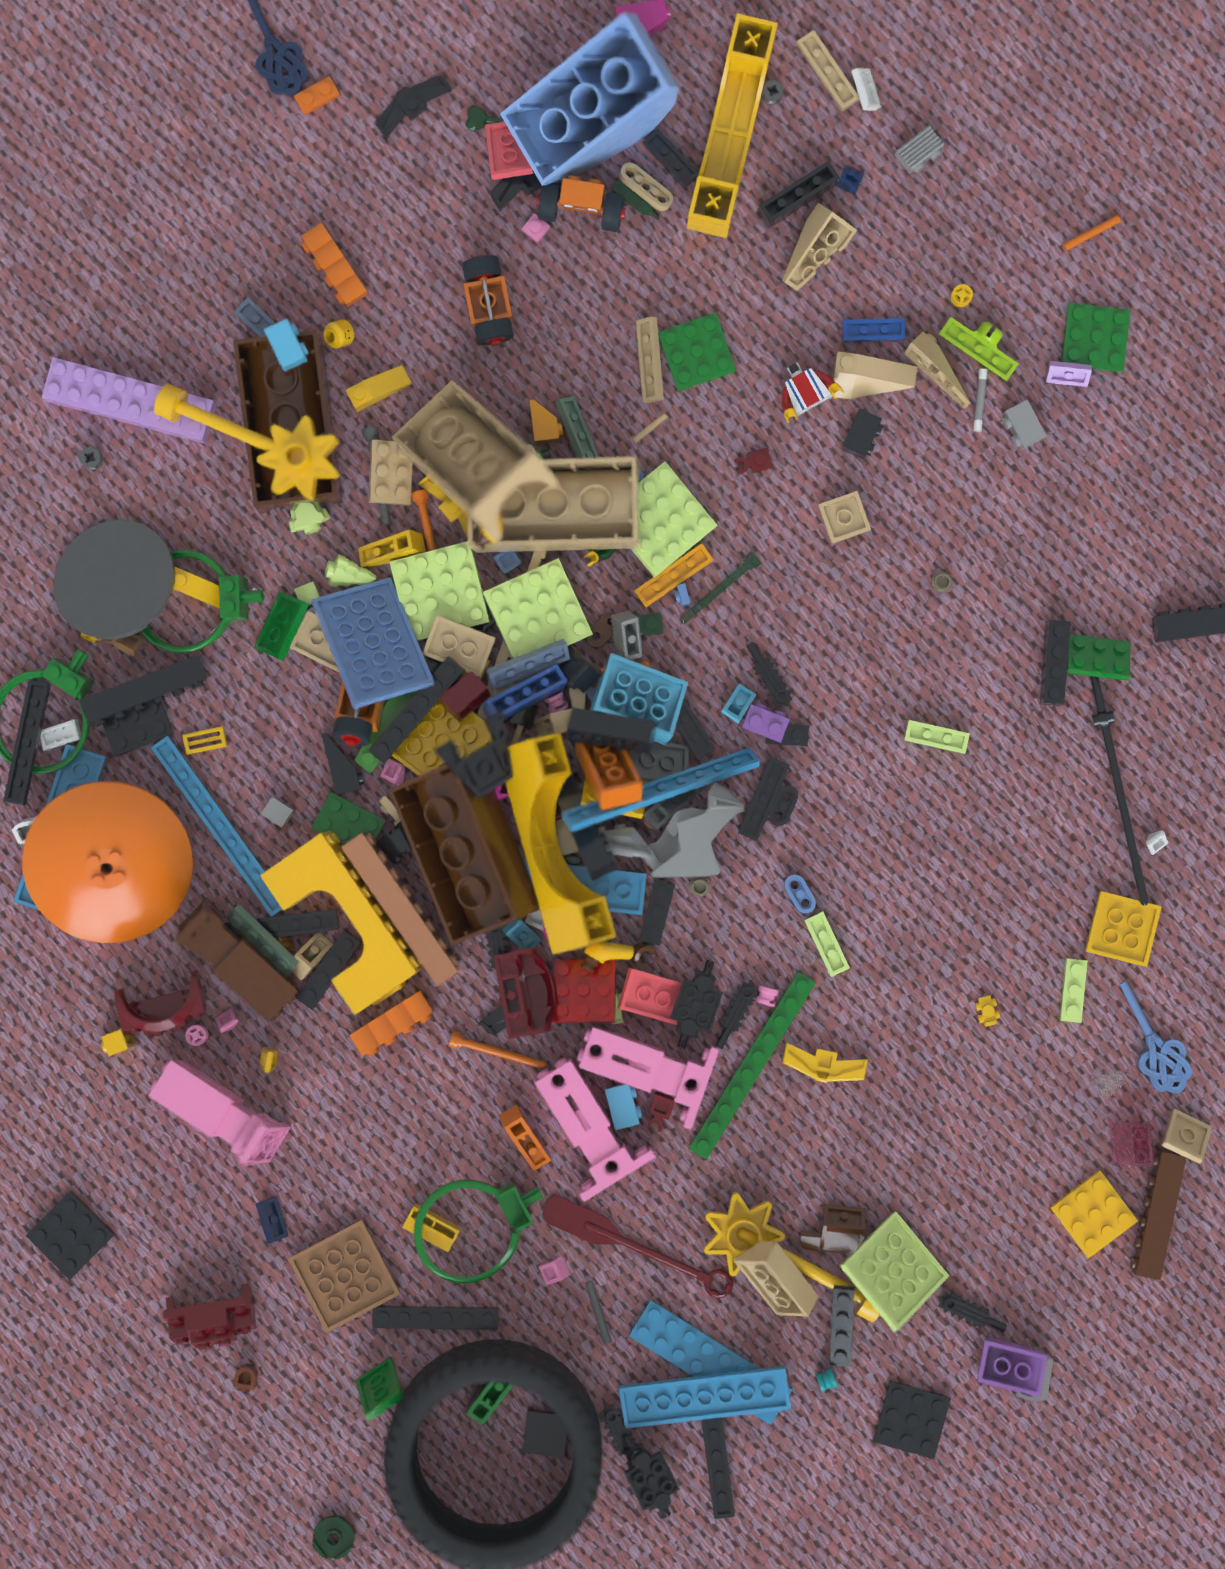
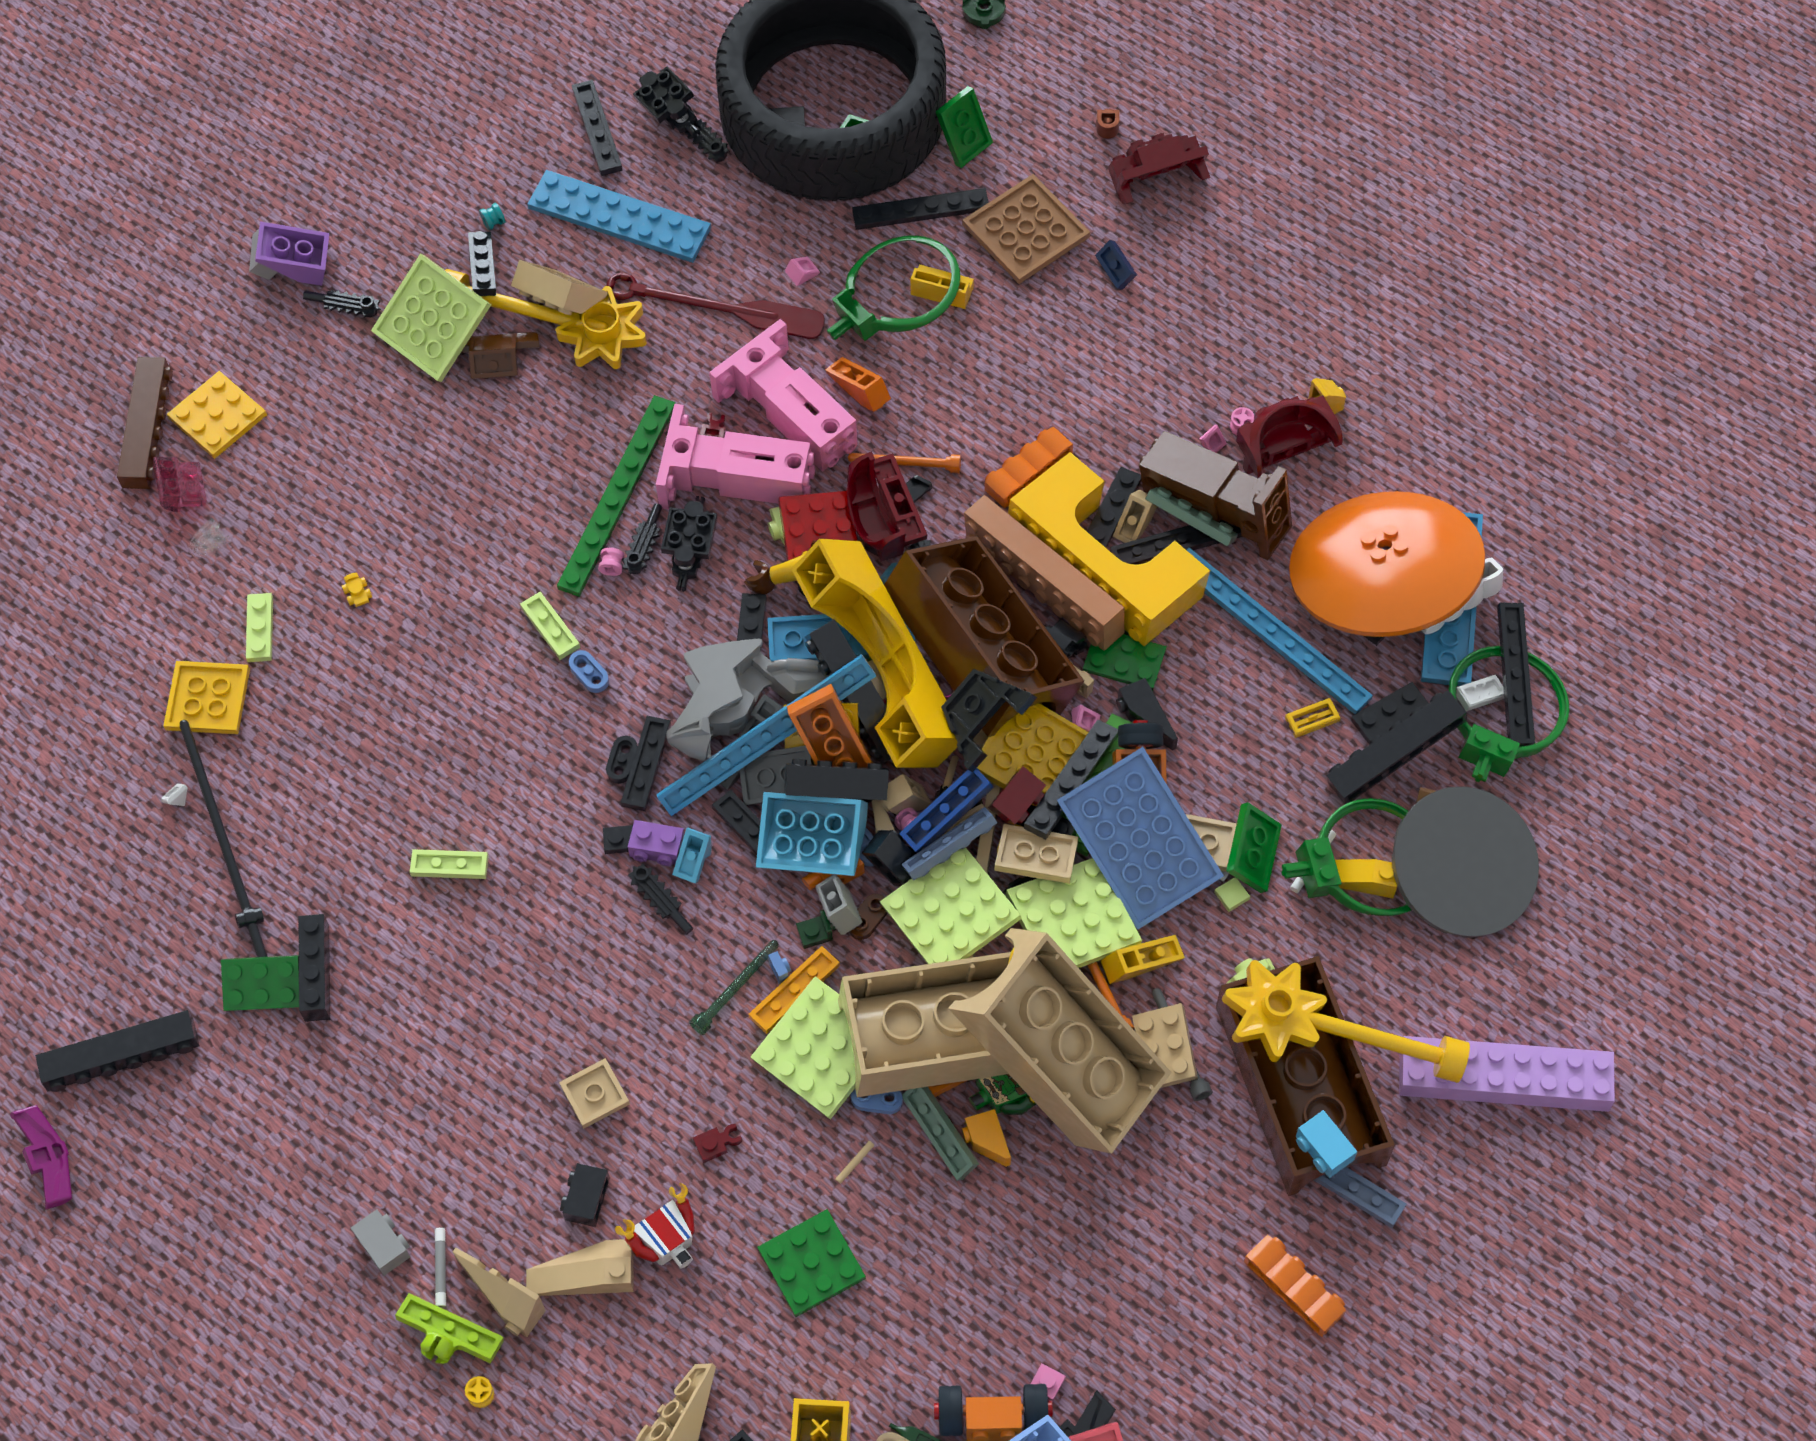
camera: 170 degrees right, 25 degrees down
(70, 1234) = (1327, 220): black plate -> none
(95, 461) = (1531, 1006): dark grey wheel -> none
(218, 1112) = (1200, 343): bright pink brick -> none
(268, 1059) = (1156, 408): yellow slope -> none
(277, 812) = (1208, 651): light grey panel -> none
(287, 943) = (1167, 522): clear orange plate -> none
(339, 334) = (1267, 1198): yellow head -> none
(346, 573) = (1187, 922): yellowish green rock -> none
(378, 387) = (1204, 1144): yellow slope -> none
(487, 300) = (1087, 1266): brick -> none
(598, 1312) = (746, 239): dark grey bar -> none
(622, 1105) = (753, 421): medium azure brick -> none
(649, 359) = (869, 1239): tan plate -> none
(649, 995) = (744, 537): coral plate -> none
(705, 1397) = (619, 178): dark azure plate -> none
(823, 1065) = (535, 505): yellow plate -> none
(873, 330) = (588, 1328): blue plate -> none
(911, 1419) = (396, 199): black plate -> none
(941, 582) = (463, 1040): dark tan plate -> none
(1068, 373) = (329, 1316): lavender plate -> none
(1096, 336) = (298, 1372): green plate -> none
(1159, 1059) = (145, 579): medium blue piece -> none
(1187, 1136) = (117, 499): tan plate -> none

